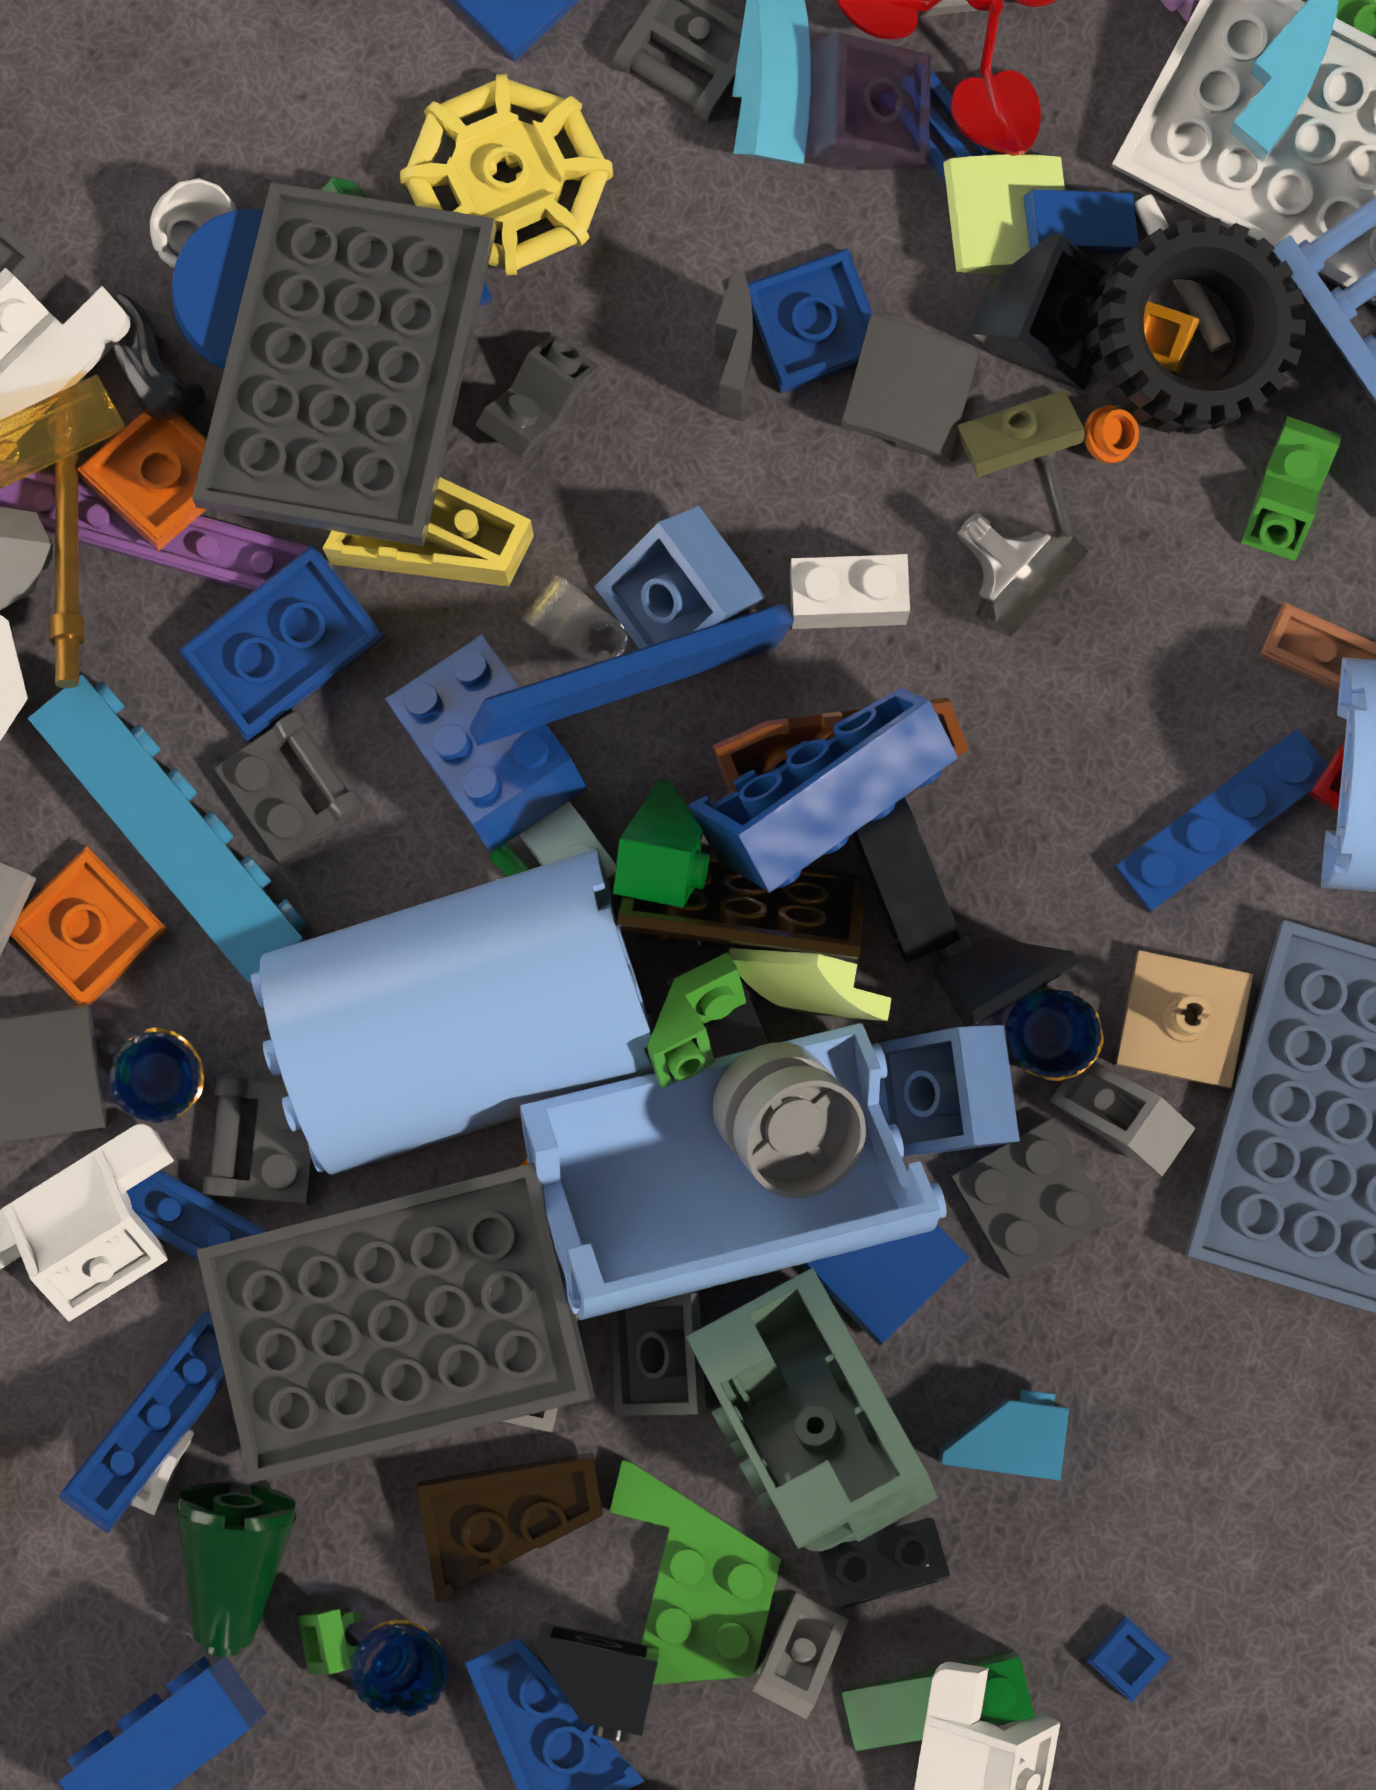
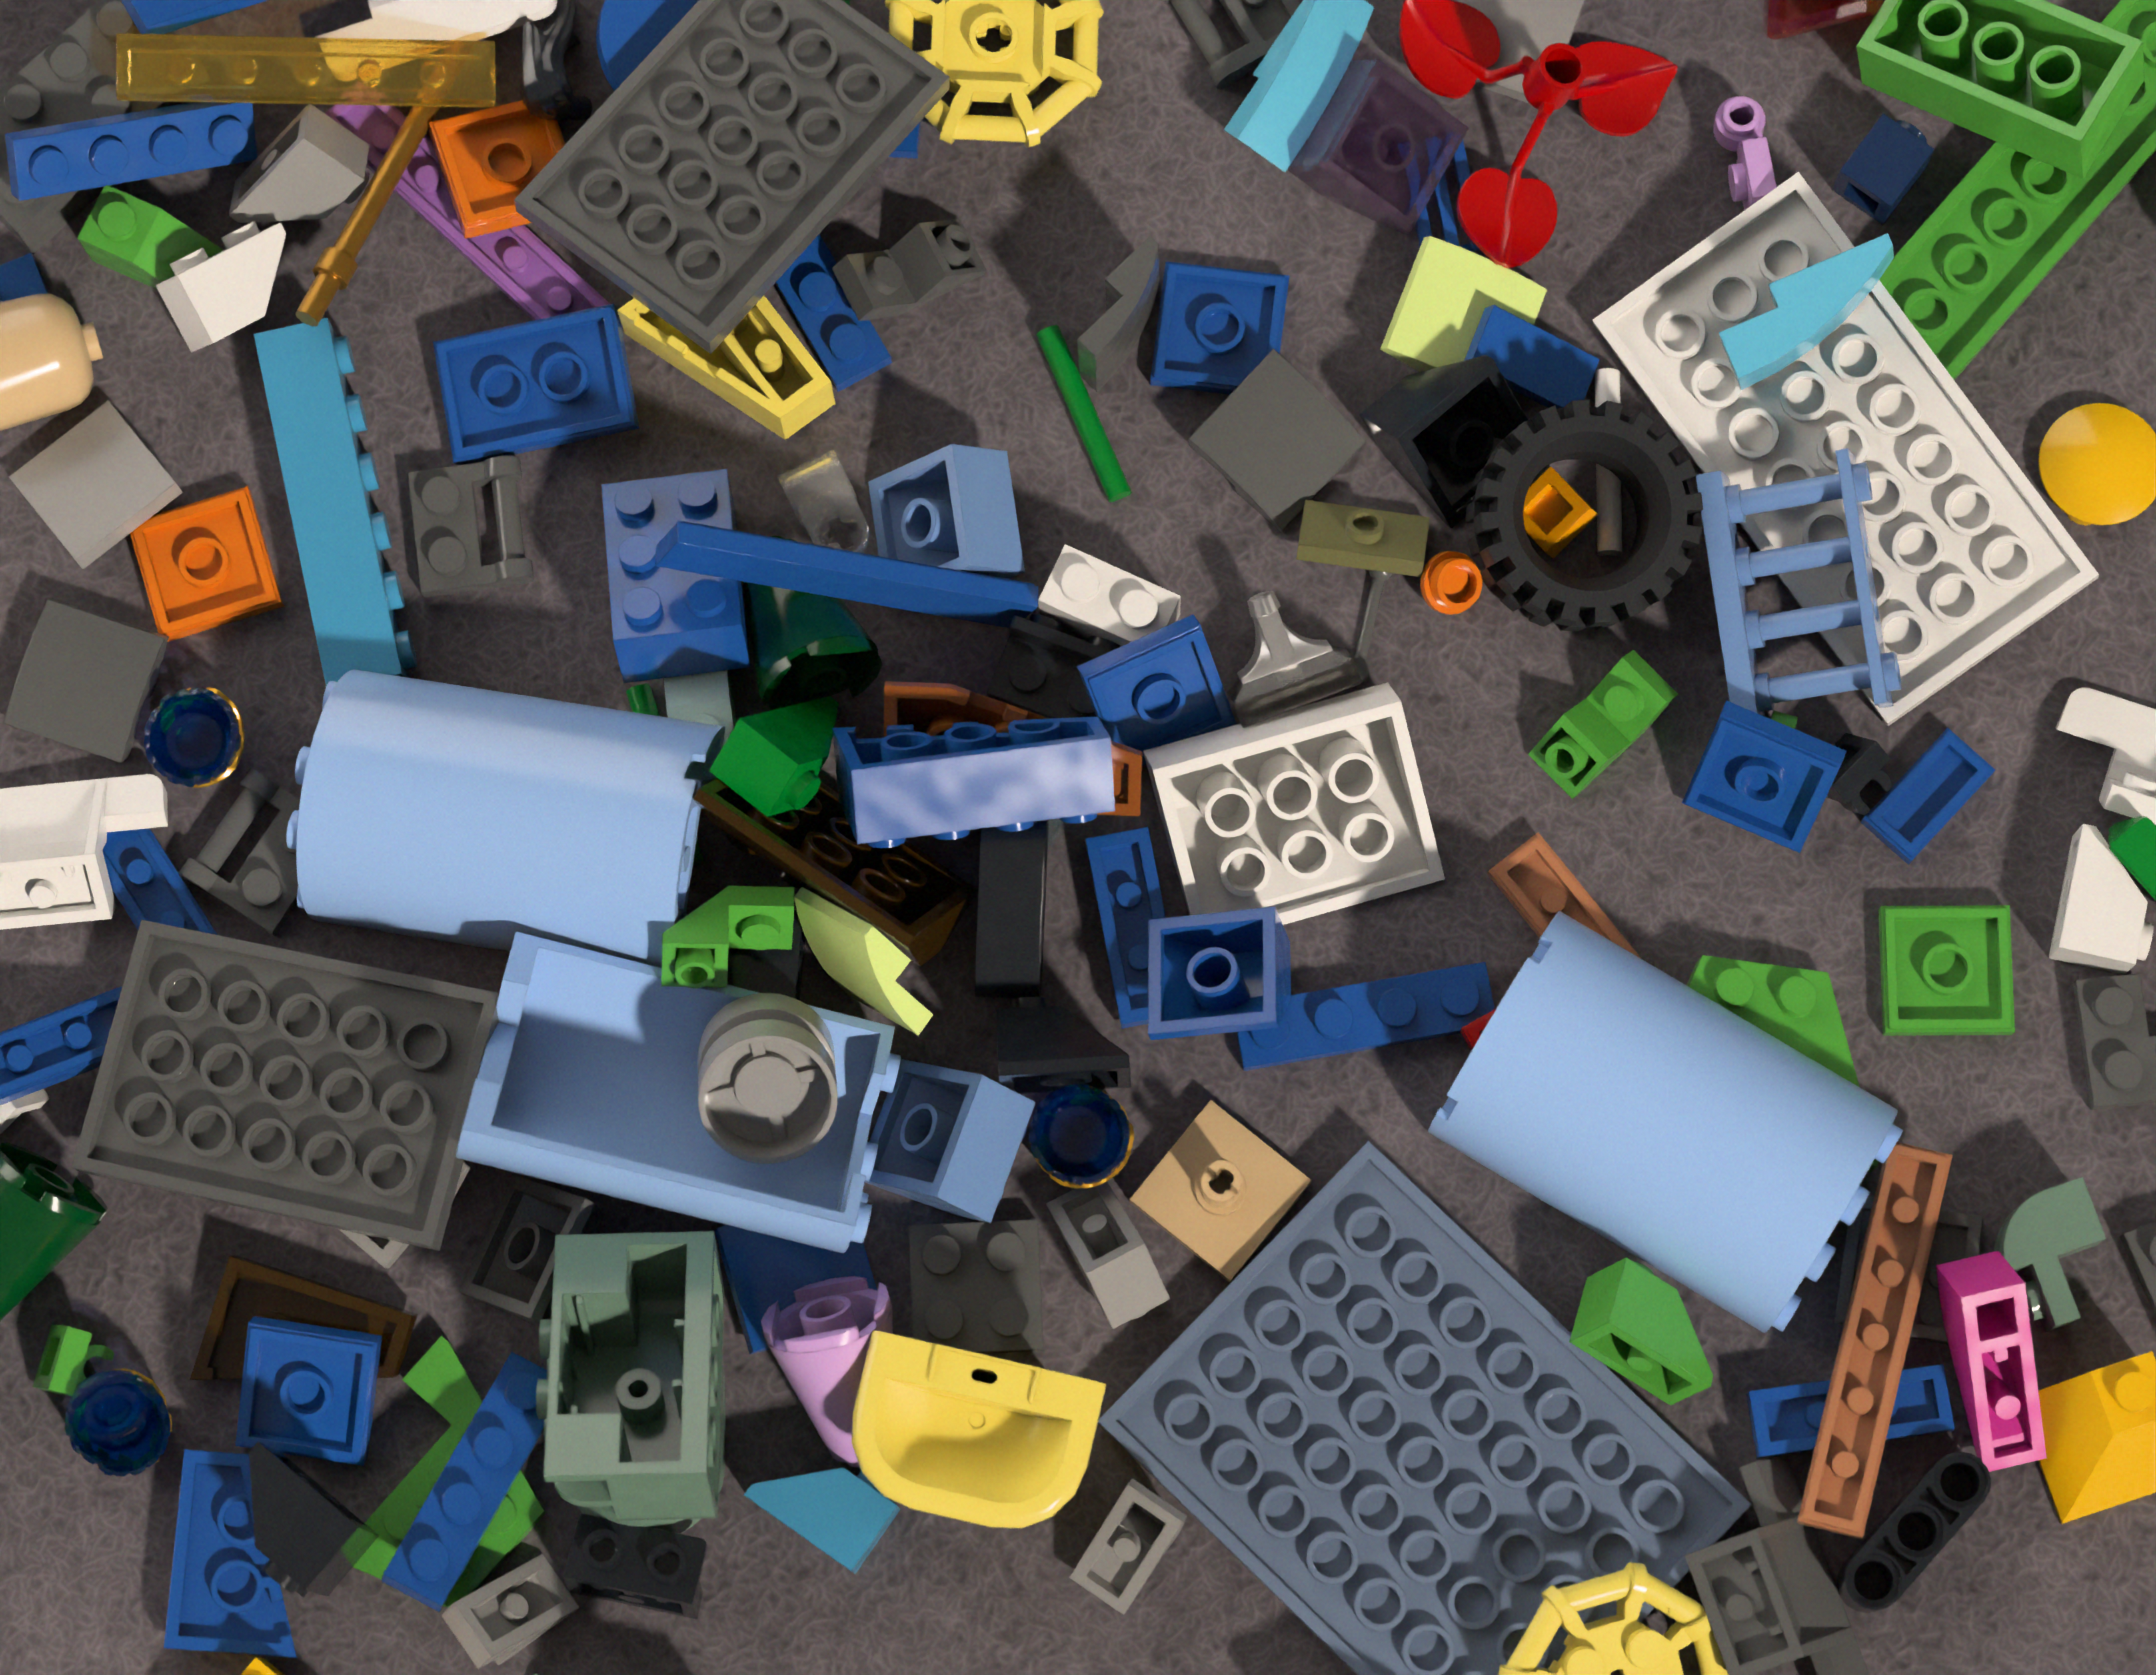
camera: 30 degrees right, 5 degrees down
(495, 471) = (841, 342): none -> blue plate
(539, 1562) = (308, 1390): none -> blue tile
(621, 747) = (806, 646): none -> dark green cone
(717, 1569) = (470, 1487): none -> blue plate
(740, 443) = (1083, 413): none -> green bar
(836, 667) = (1041, 668): none -> black bracket
(928, 638) = (1158, 688): none -> blue tile
(961, 1316) = (824, 1350): none -> lavender cone
(1005, 842) = (1126, 901): none -> blue plate
(1085, 684) = (1298, 809): none -> white slope
(1098, 849) = (1217, 973): none -> blue slope
(1113, 1337) = (968, 1446): none -> light yellow piece
(1267, 1343) = (1128, 1546): none -> light grey slope

